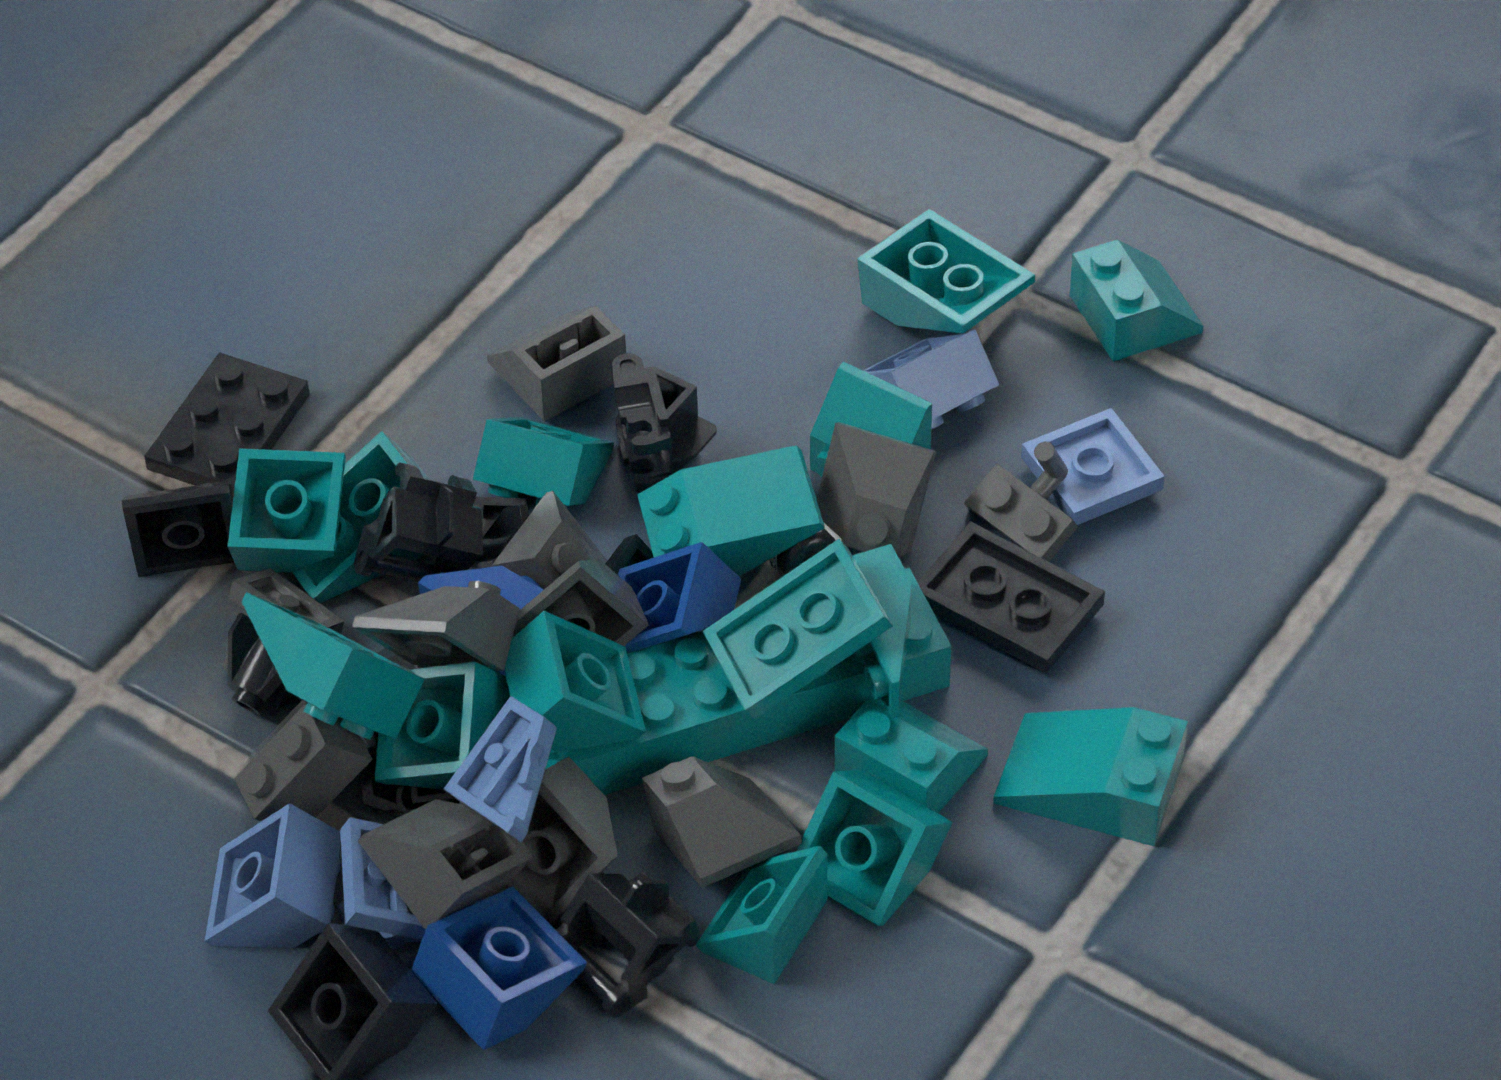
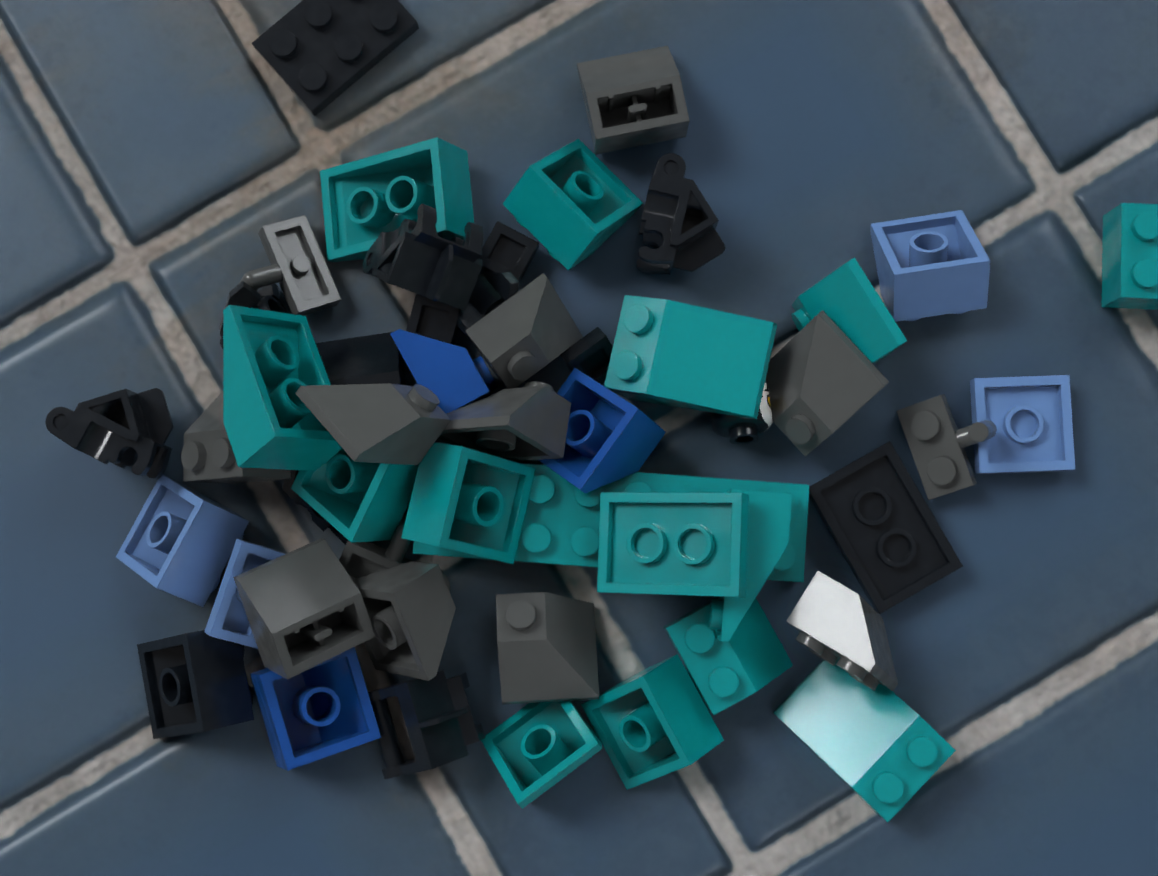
camera: 25 degrees right, 35 degrees up
(169, 799) = (119, 430): none -> black piece
(179, 527) = (248, 138): black slope -> none
(285, 508) = (327, 178): teal slope -> none
(506, 768) = (371, 577): medium blue wing -> none
(937, 276) = (995, 177): teal slope -> none
(1016, 667) = (844, 627): none -> slope

